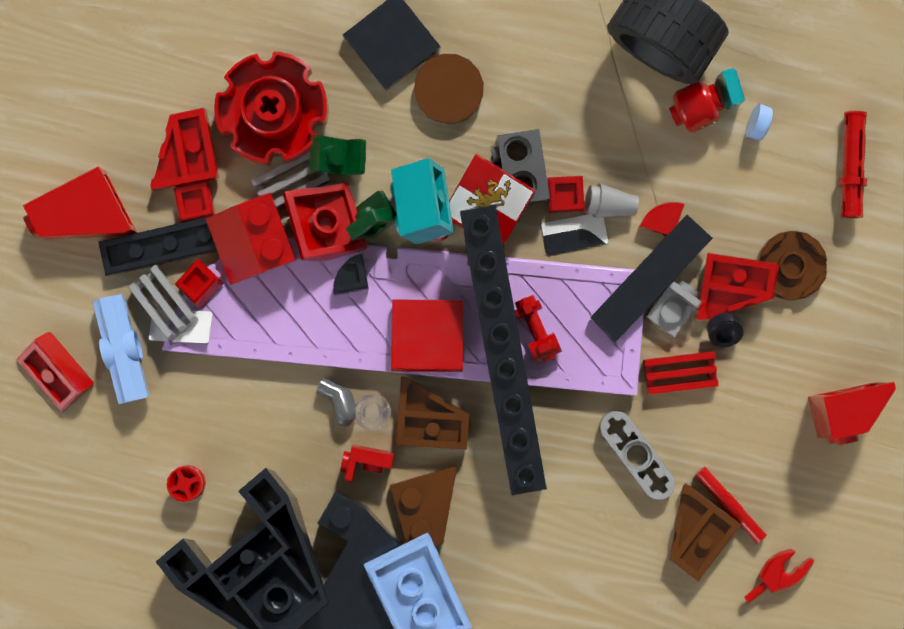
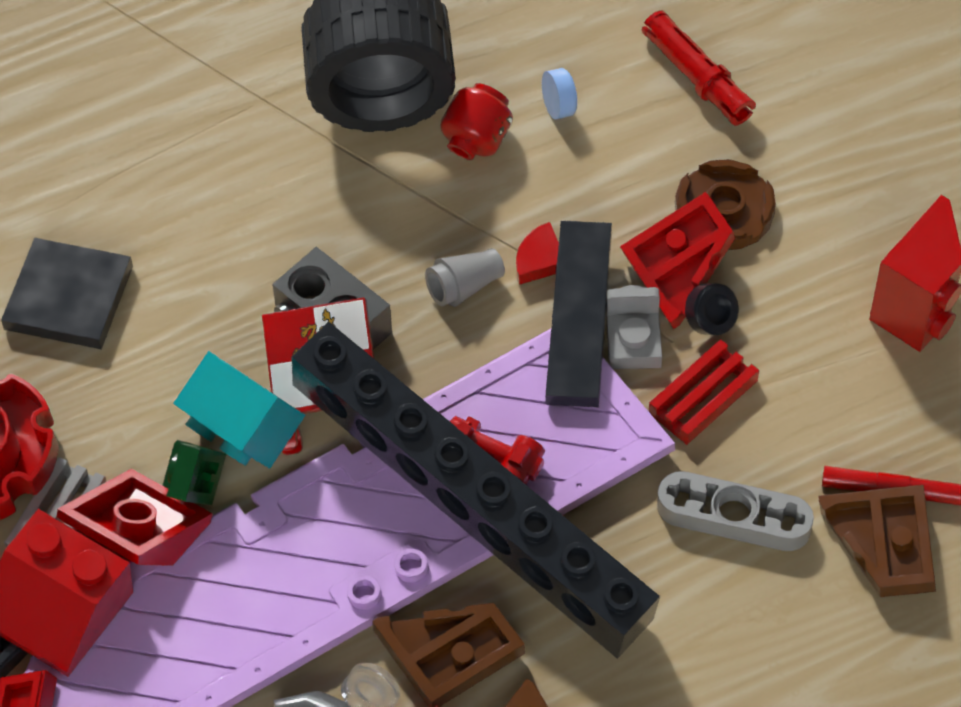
camera: 35 degrees left, 30 degrees down
(337, 156) = (99, 443): dark green bracket -> none
(351, 277) = (218, 558): black tile -> none
(427, 335) = (366, 548): red tile -> none
(448, 88) = (175, 294): reddish brown tile -> none
(566, 194) = (410, 306): red tile -> none
(574, 233) = (451, 341): sticker -> none
(731, 88) = (501, 77): teal tile -> none

